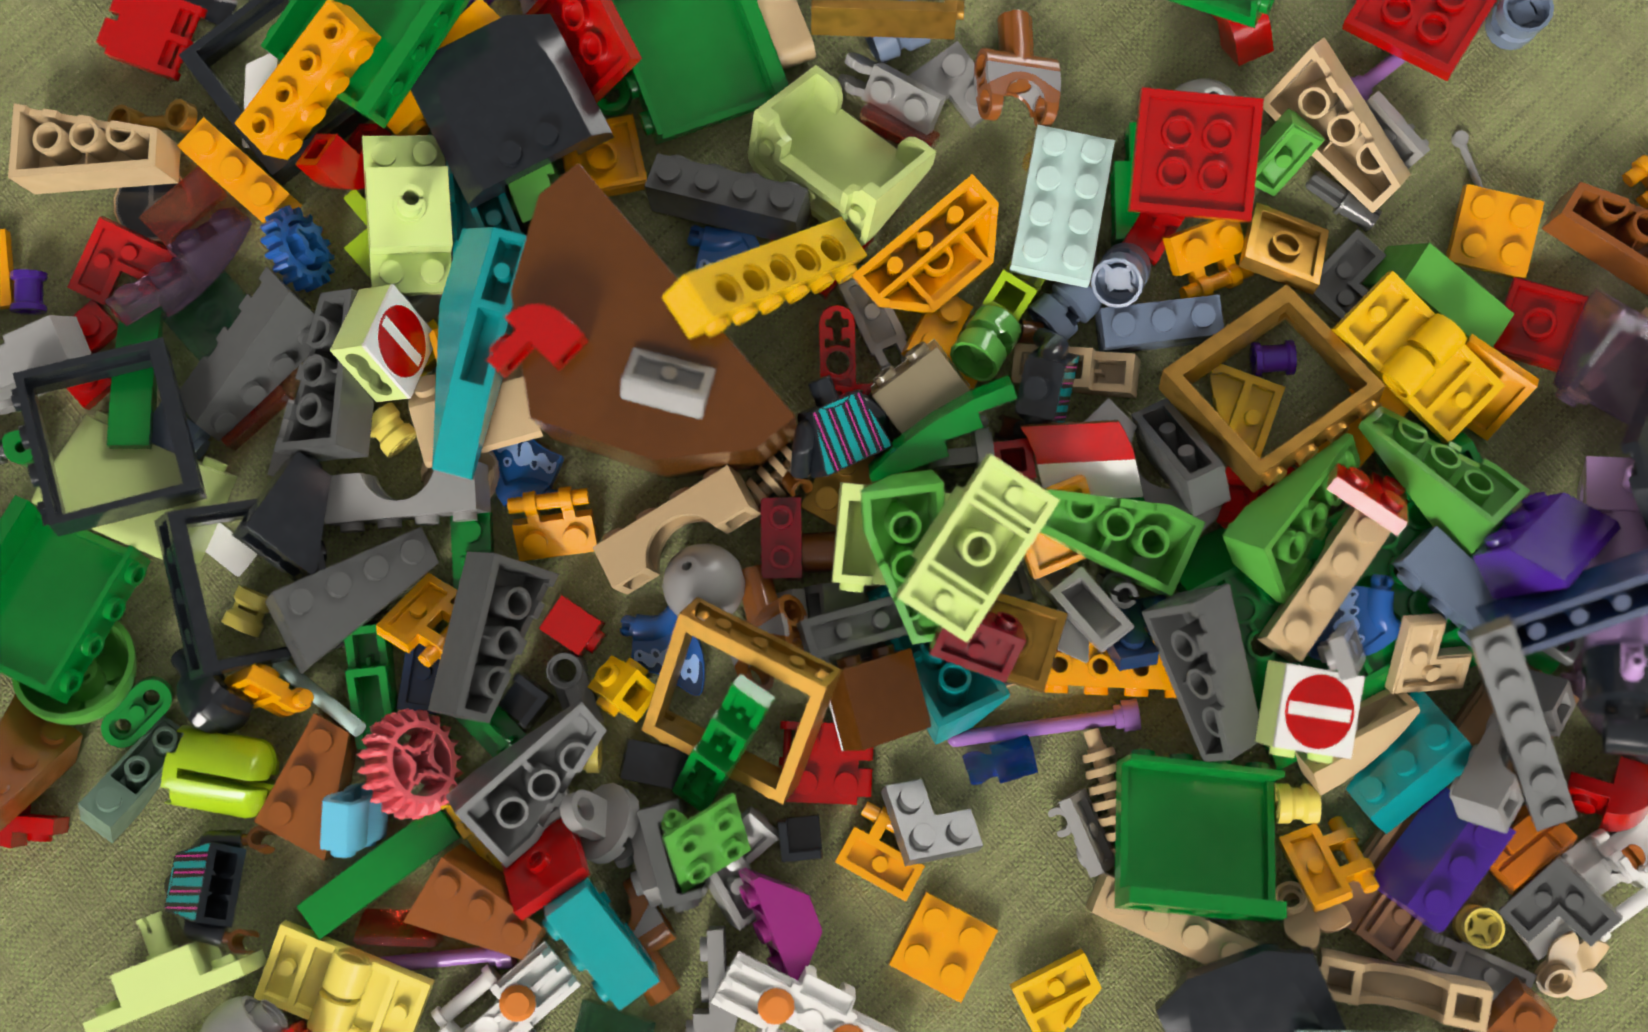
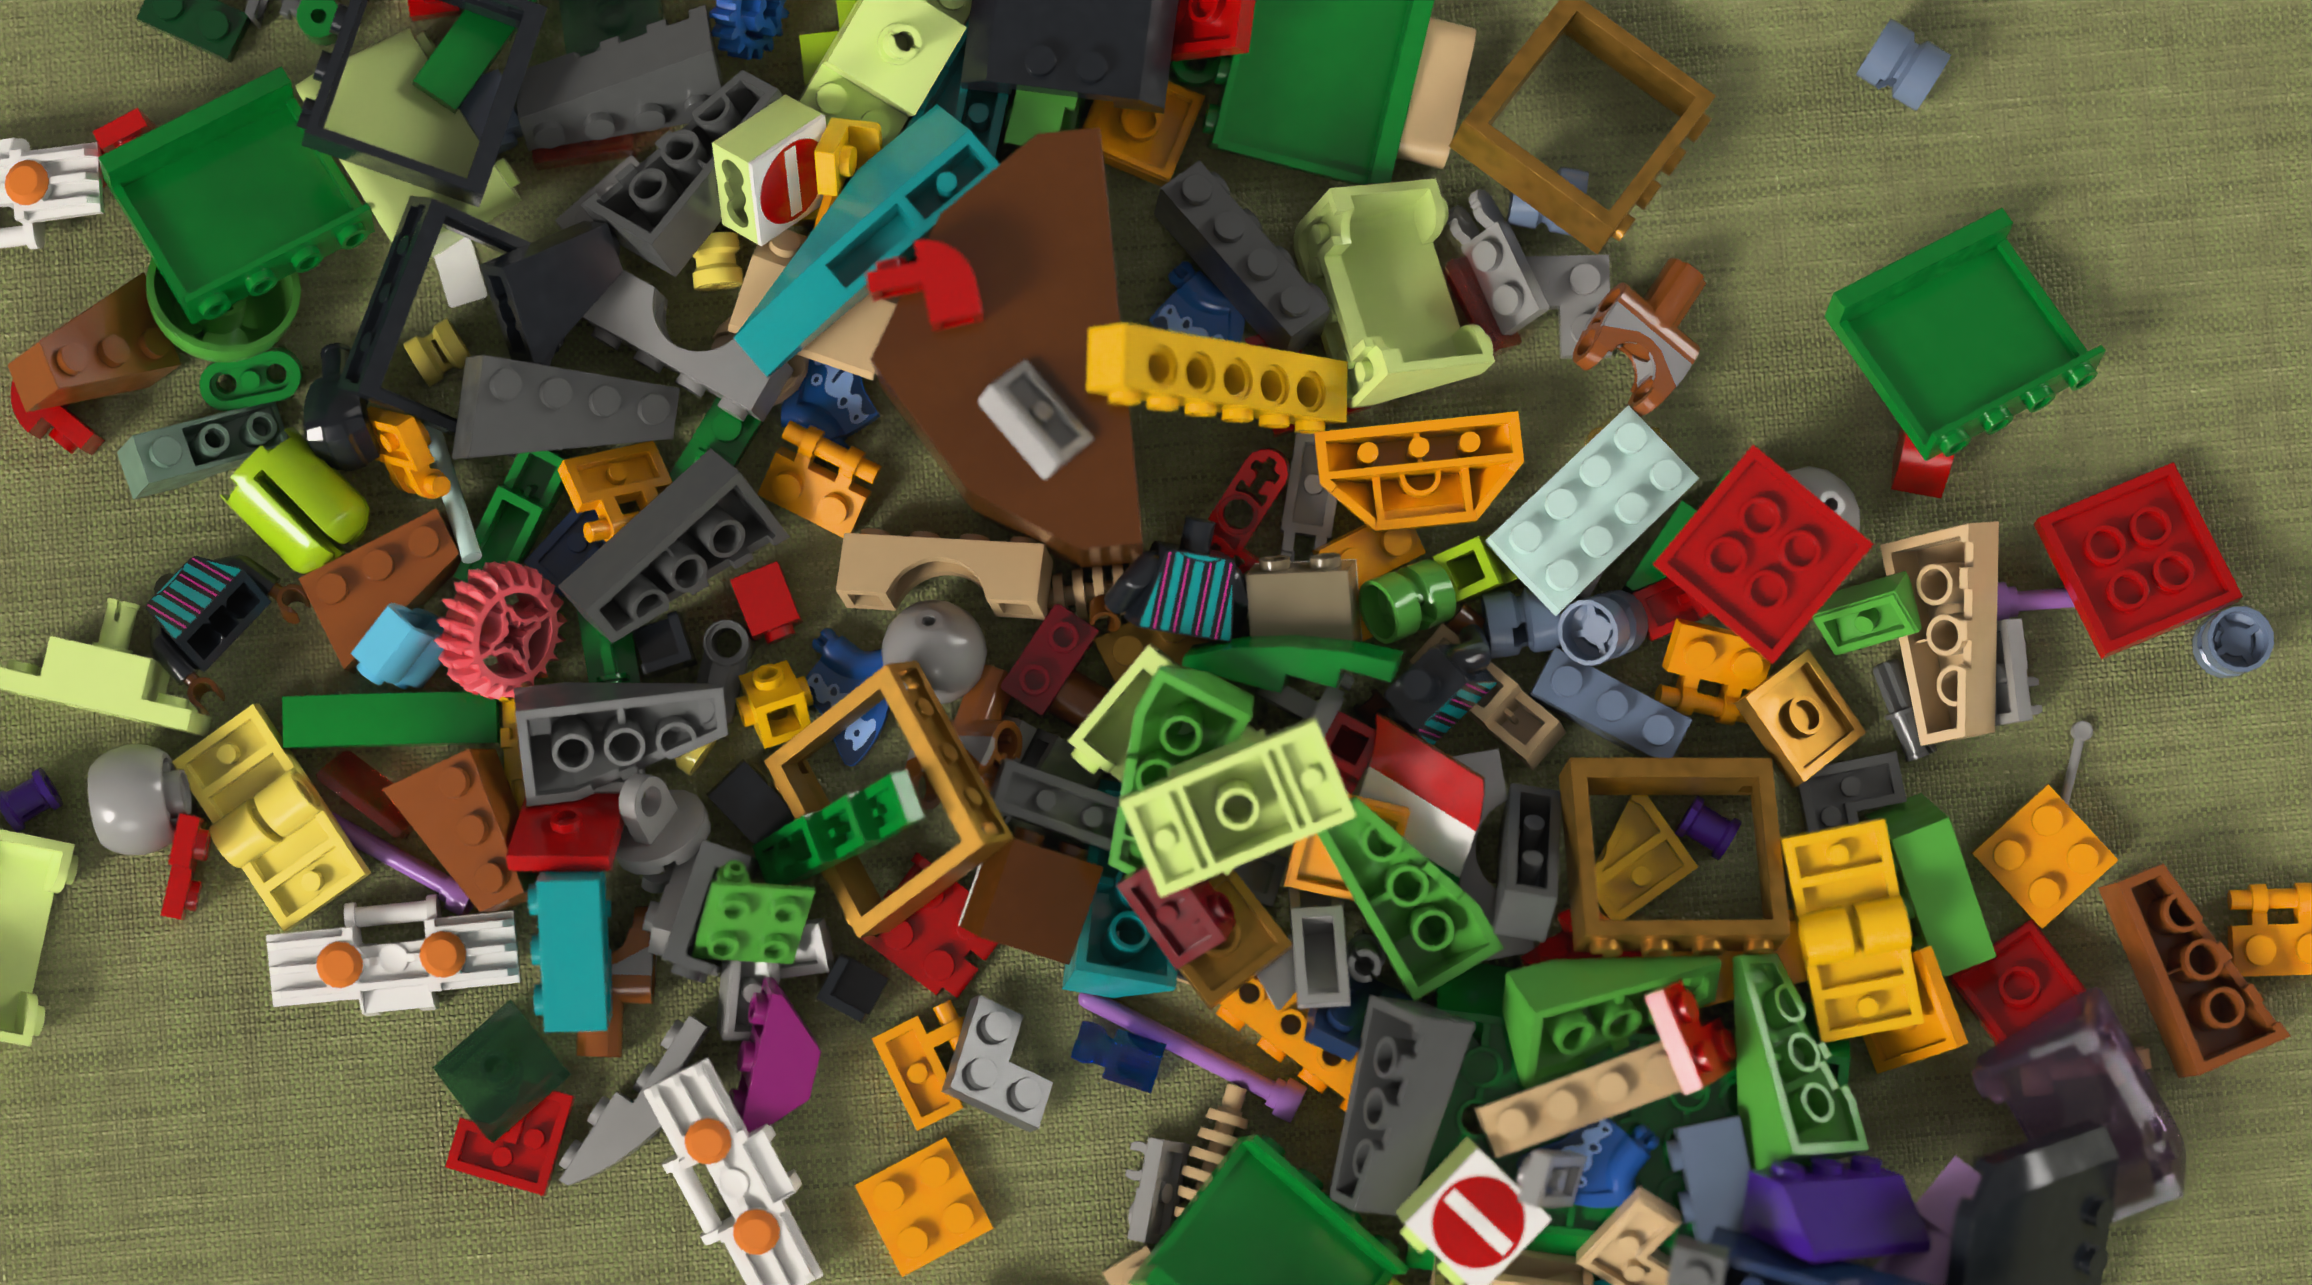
camera: 30 degrees right, 0 degrees up
(421, 299) = (844, 149): none -> yellow bracket

